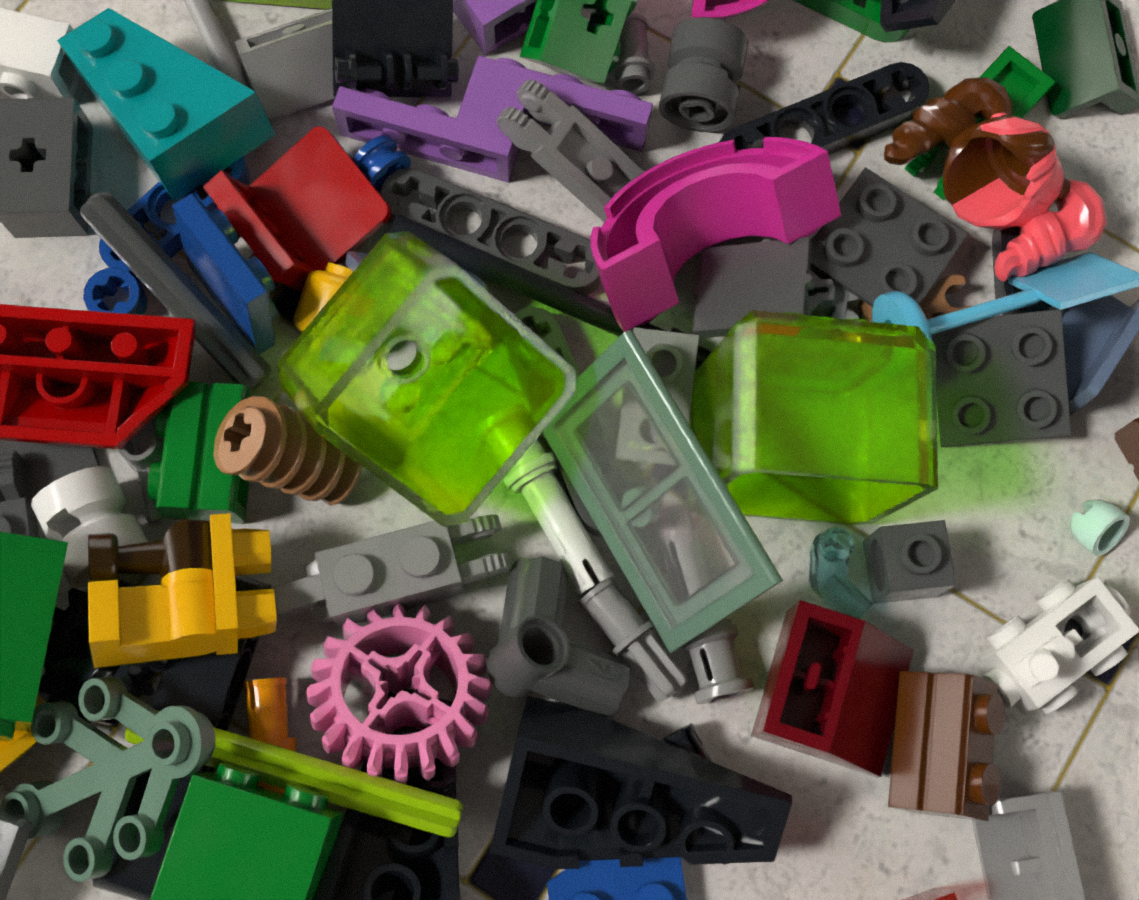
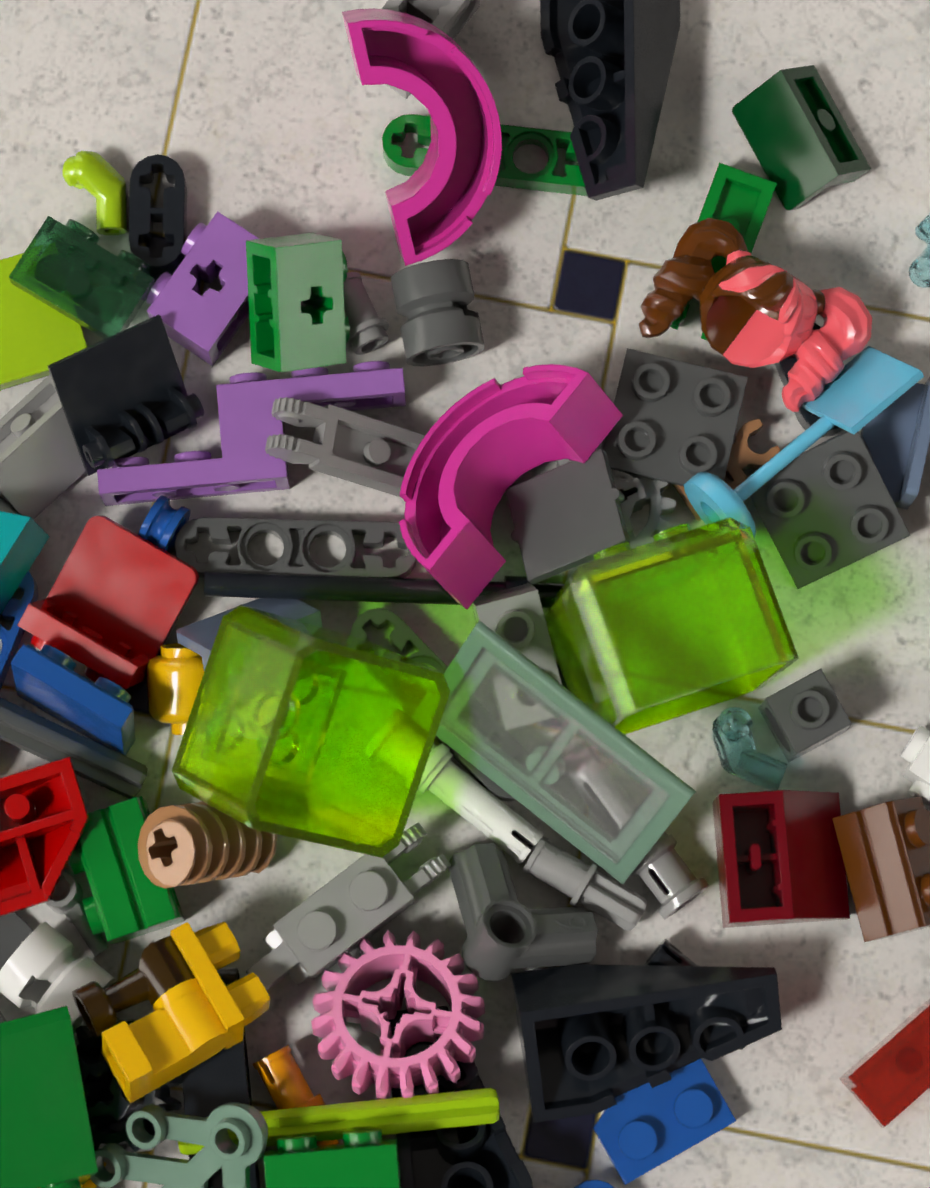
camera: 20 degrees left, 5 degrees up
(863, 92) = (564, 308): black beam -> none

